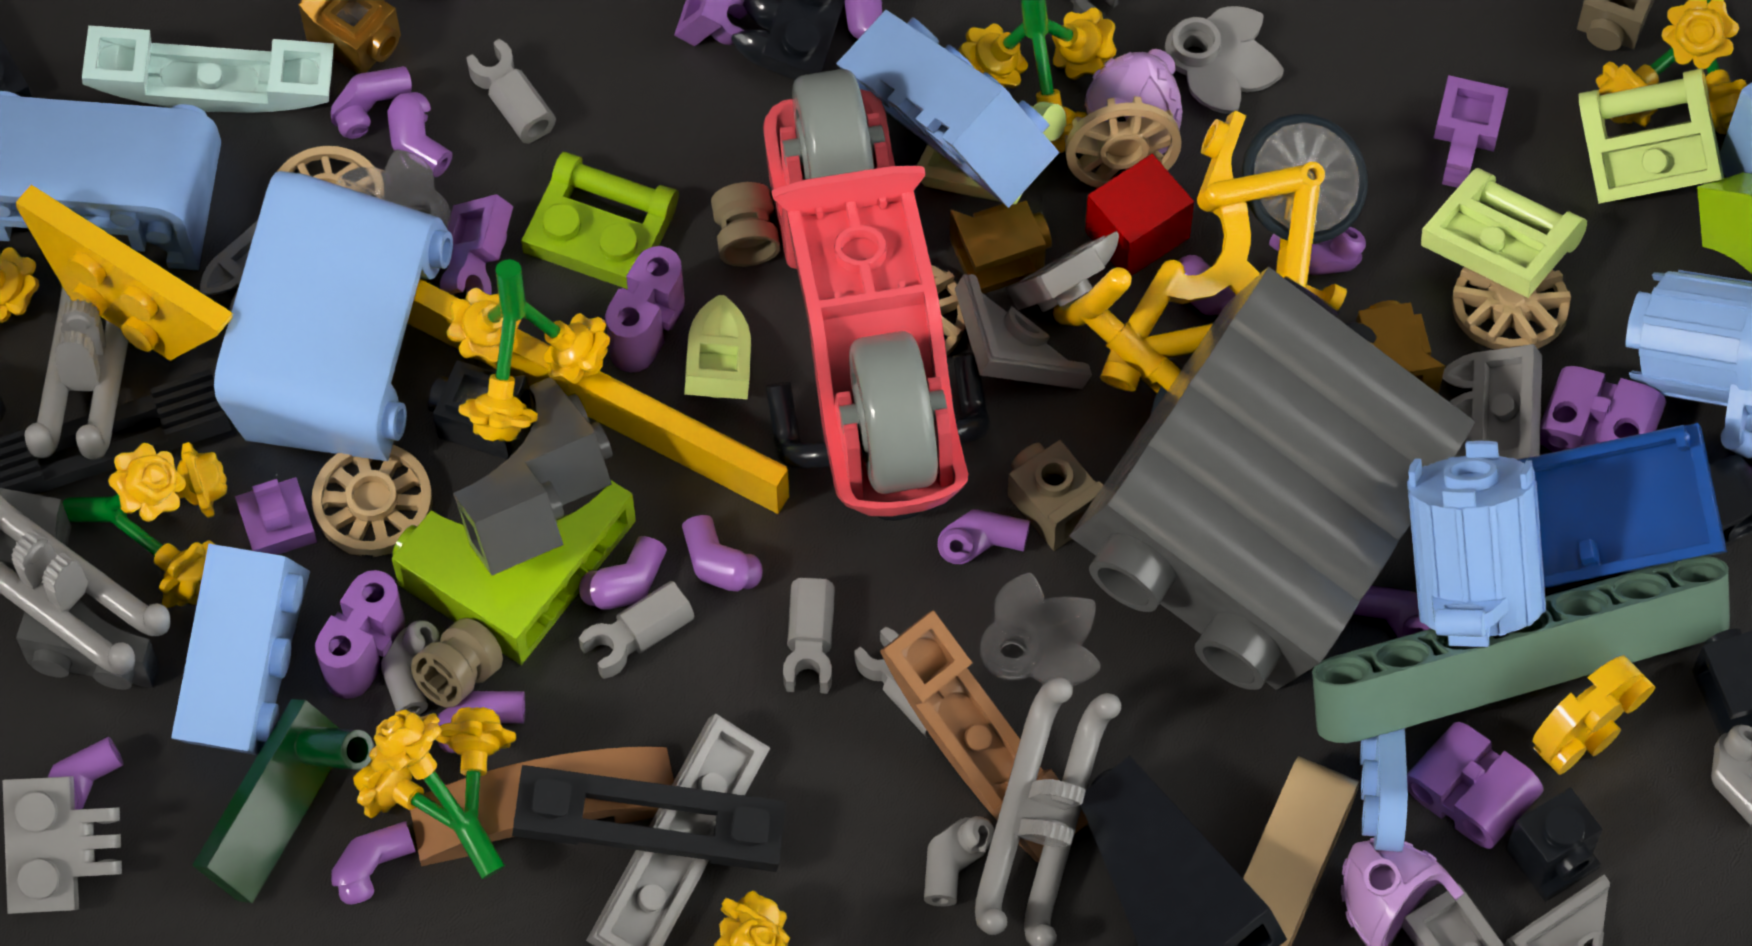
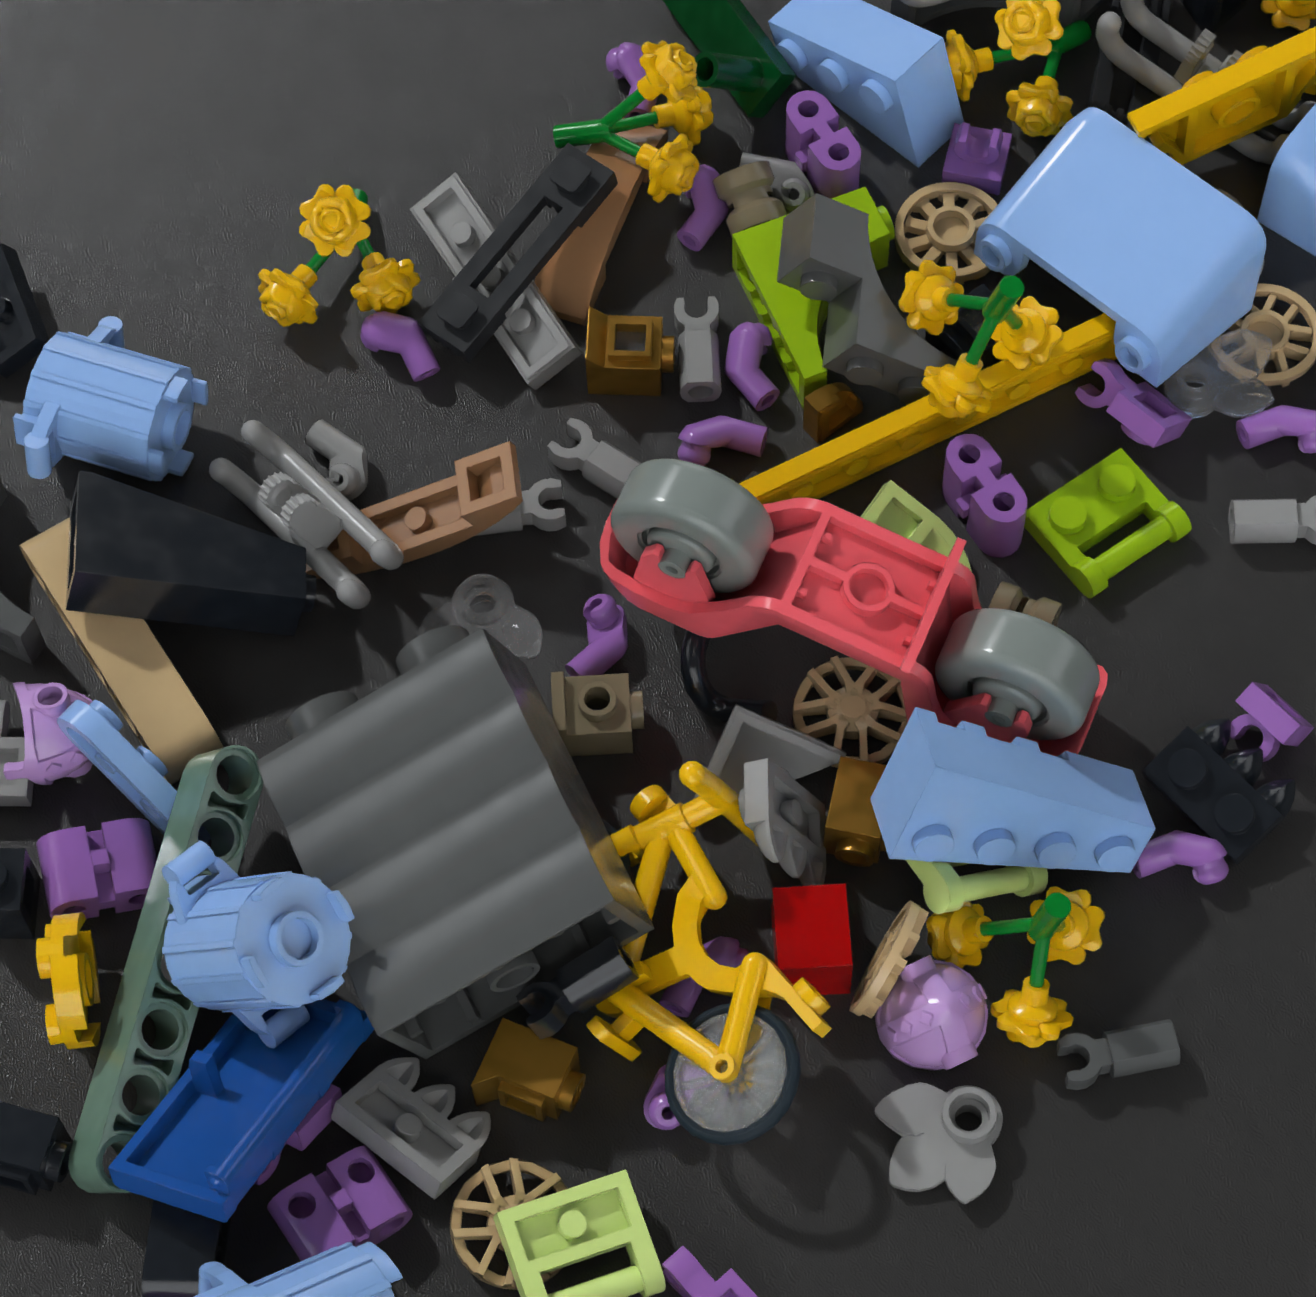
camera: 125 degrees right, 0 degrees up
(641, 479) = (829, 409): none -> pearl gold tile
(685, 673) = (627, 354): none -> pearl gold window
(797, 885) = (401, 336): none -> medium lavender arm

